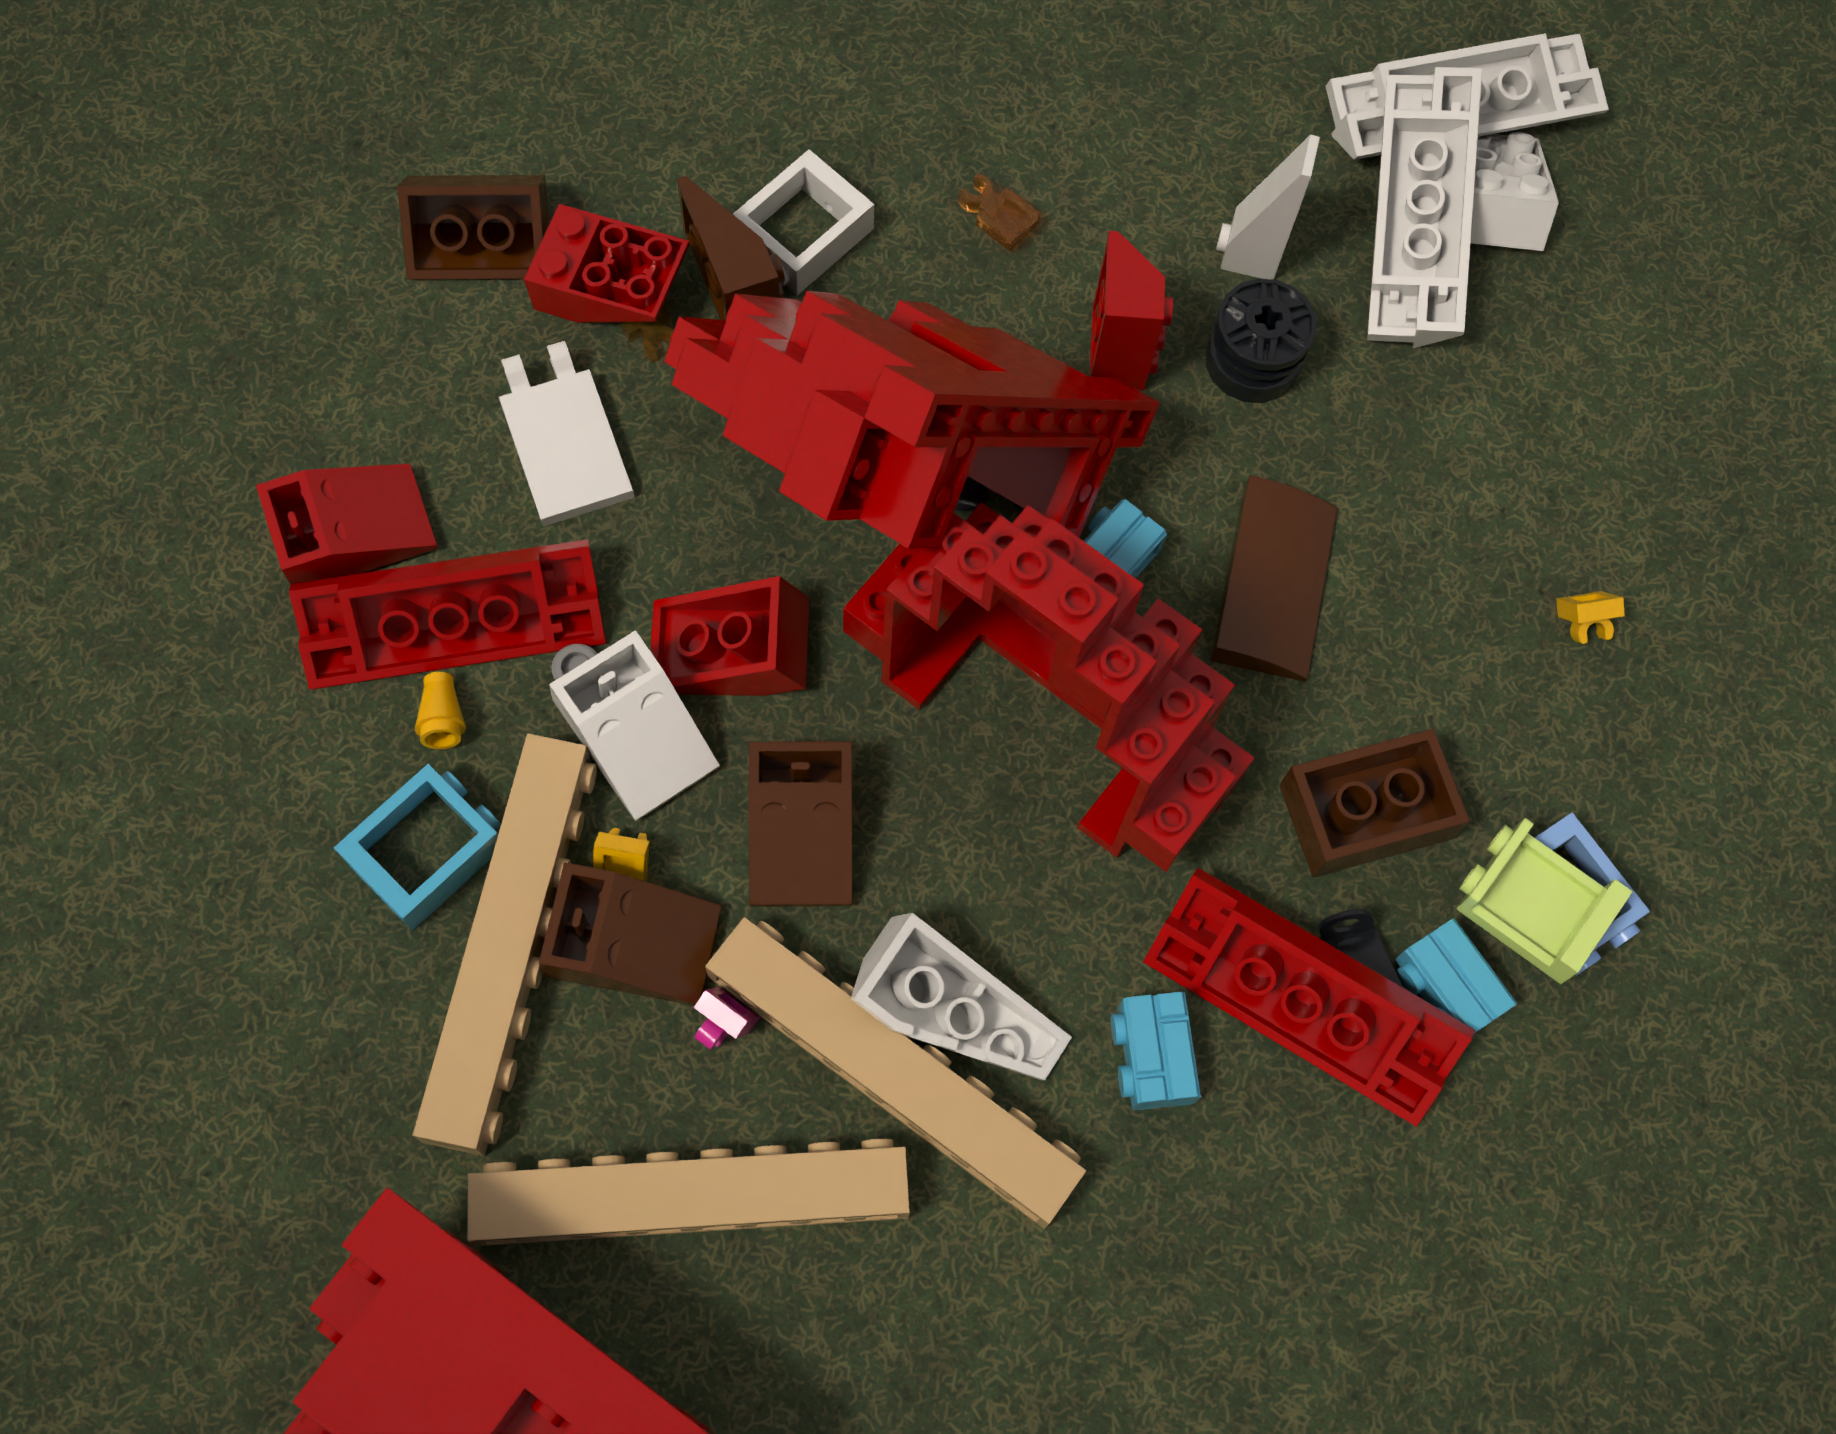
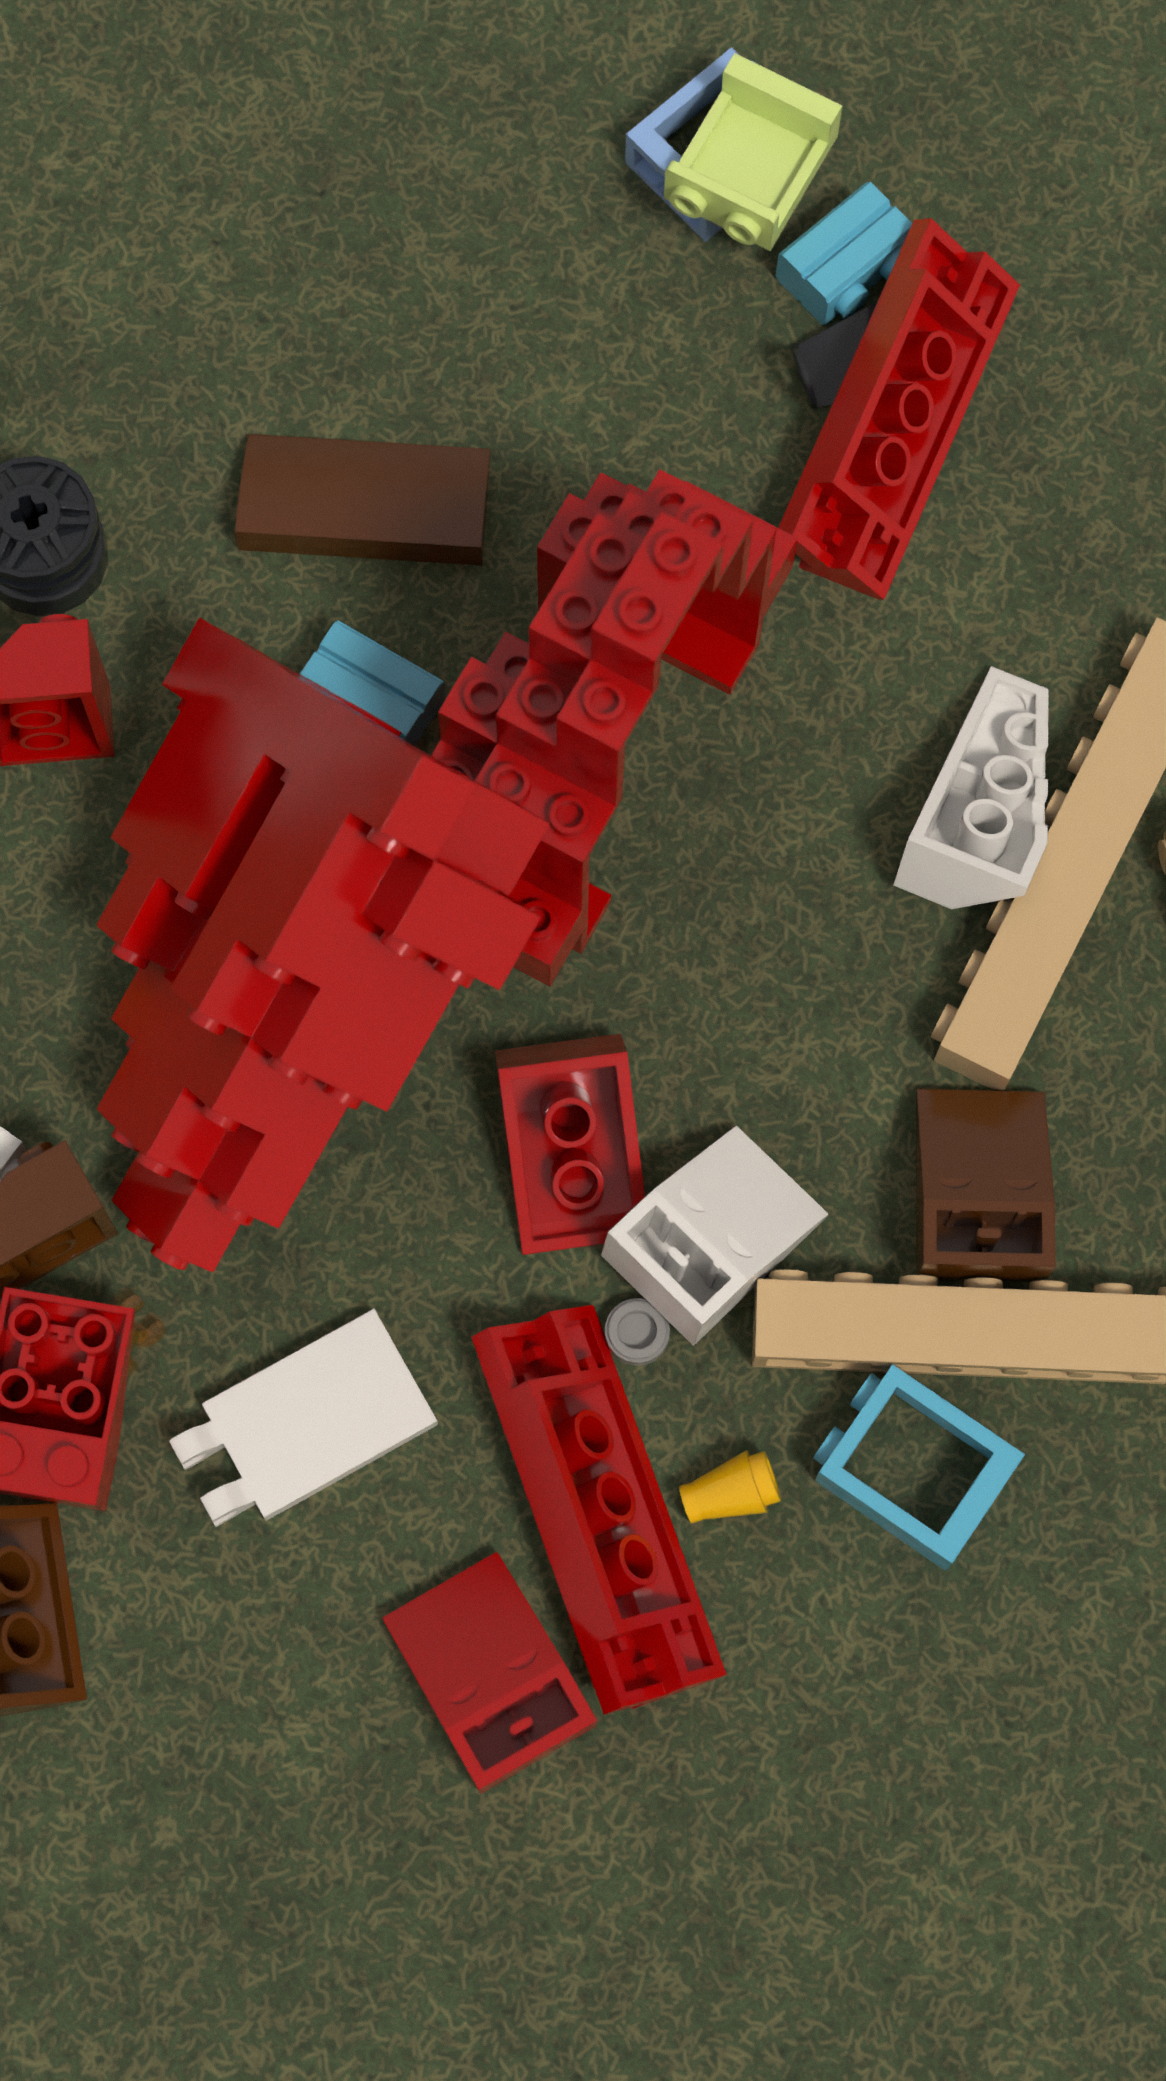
camera: 95 degrees left, 5 degrees up
(622, 854) = (887, 1216): yellow tile -> none
(724, 1017) = (1055, 1056): dark pink tile -> none
(800, 823) = (800, 1007): reddish brown slope -> none
(1156, 1051) = (995, 566): medium azure brick -> none
(1373, 802) = (652, 352): reddish brown brick -> none
(1590, 609) = (348, 131): yellow tile -> none

